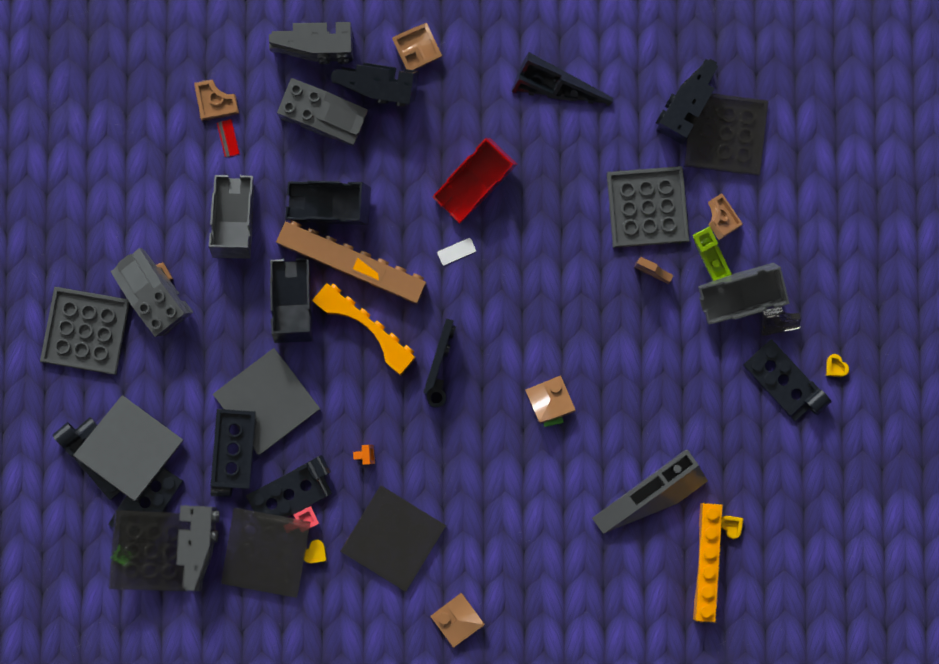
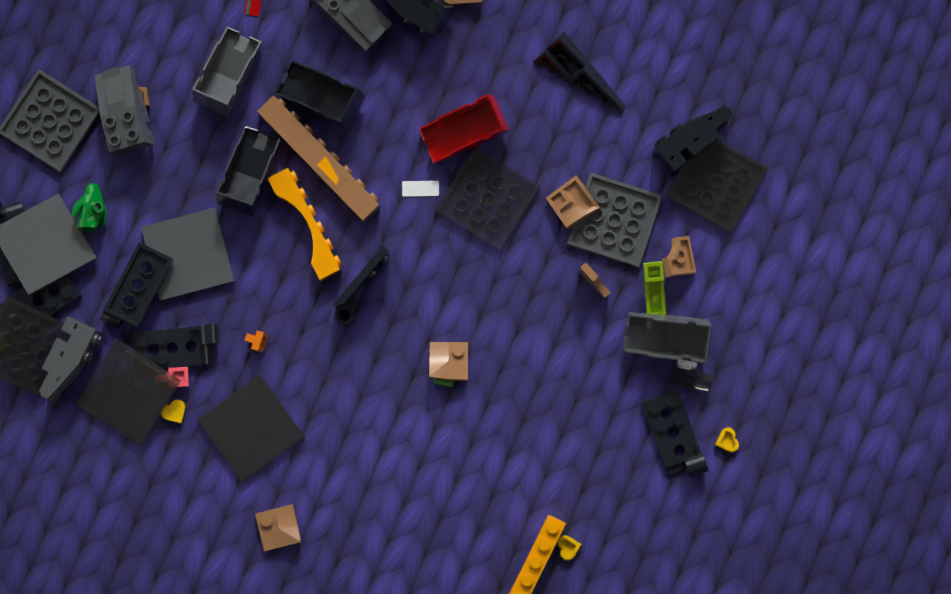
camera: 25 degrees right, 0 degrees up
(158, 398) = (90, 210): none -> green animal
(523, 235) = (487, 198): none -> clear smoke tile
(603, 206) = (572, 202): none -> medium nougat plate
(656, 492) = (509, 487): dark grey wedge -> none

